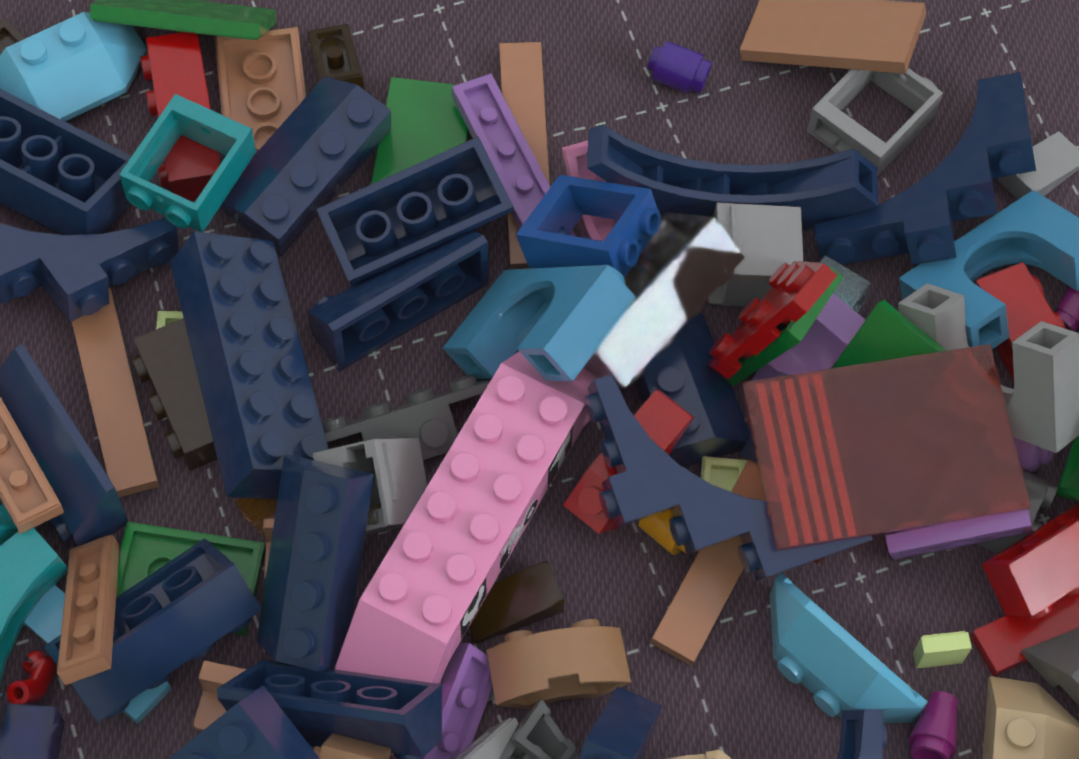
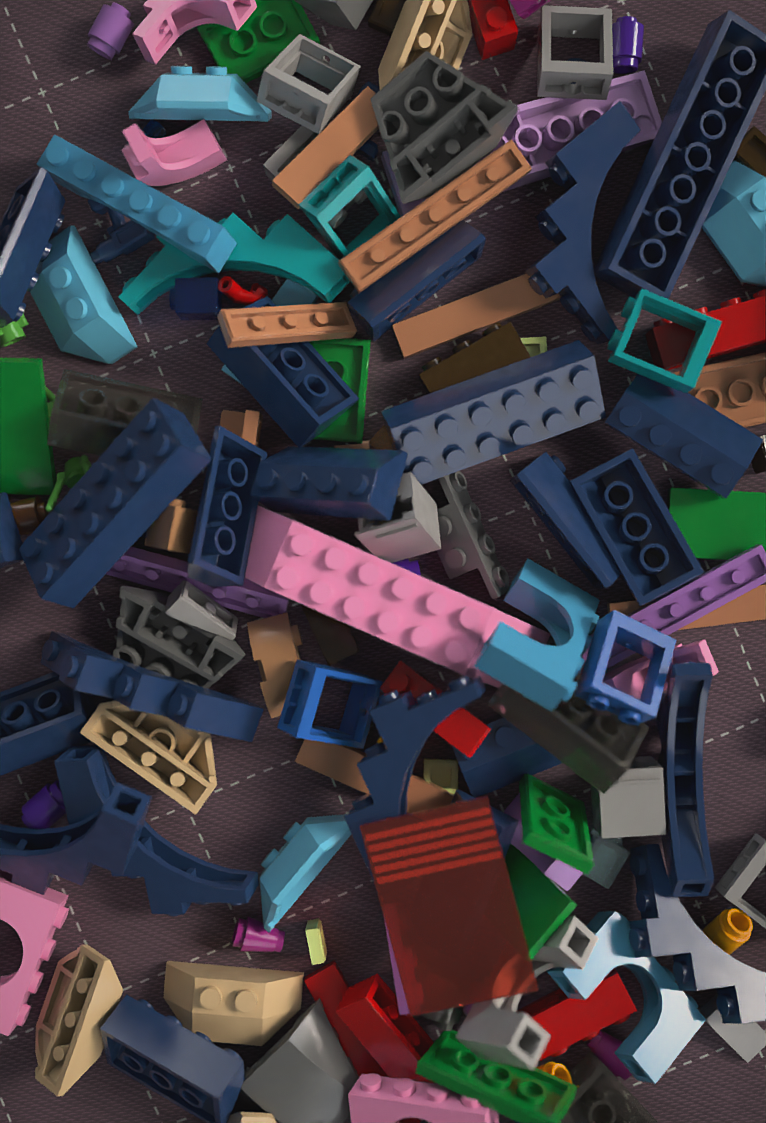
camera: 90 degrees right, 25 degrees up
(608, 616) = (304, 697): none -> blue window
(790, 297) = (563, 826): red plate -> none
(919, 153) = (729, 929): none -> light orange brick

